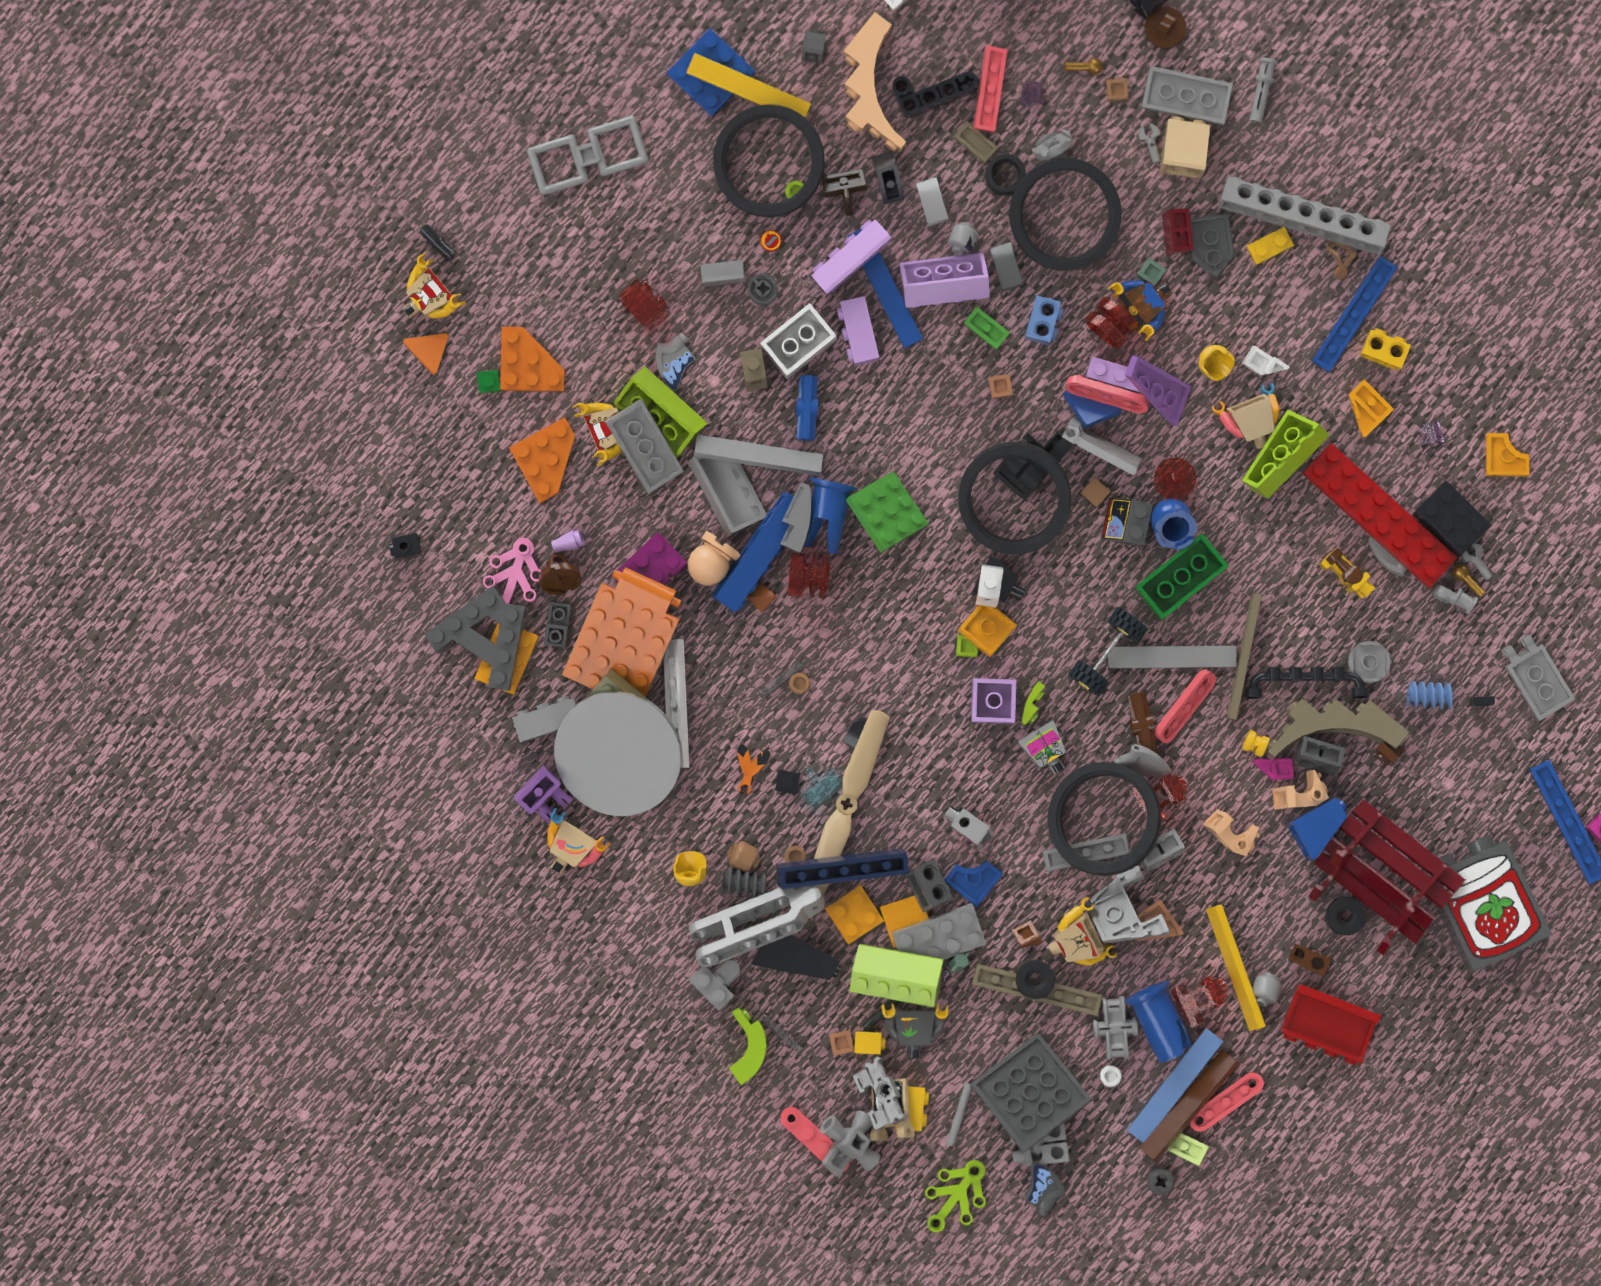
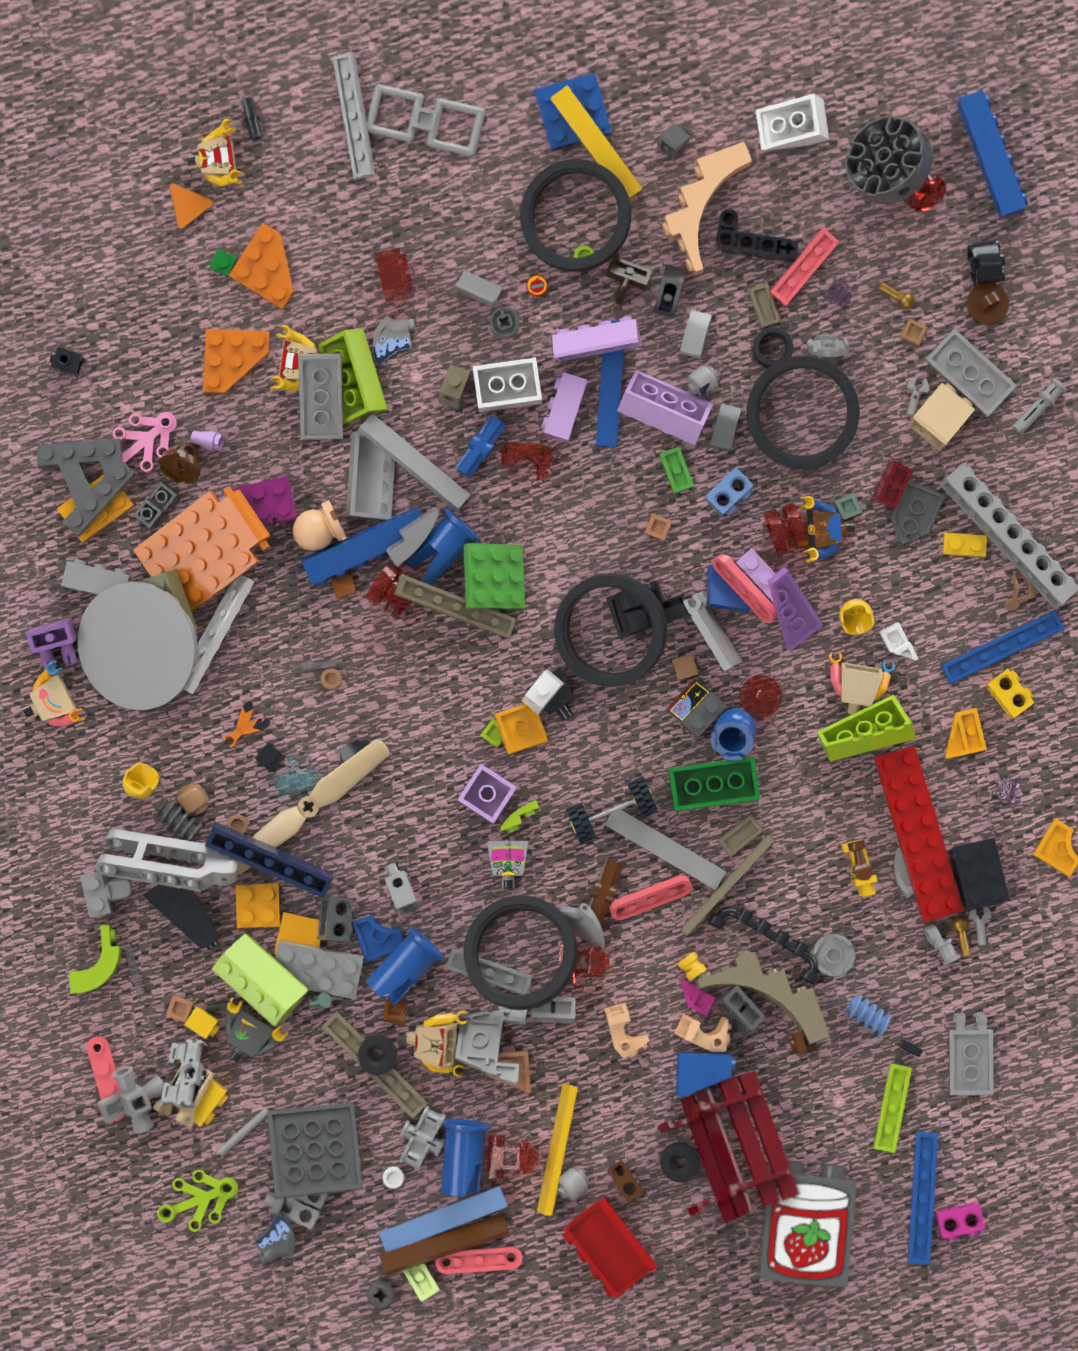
camera: 30 degrees right, 0 degrees up
(524, 188) = (354, 116): none -> light grey tile
(839, 395) = (514, 451): none -> clear red tile
(869, 557) = (454, 606): none -> dark tan tile
(1012, 890) = (404, 966): none -> blue piece
(1229, 608) = (740, 836): none -> dark tan tile
(1497, 761) = (892, 1108): none -> lime plate

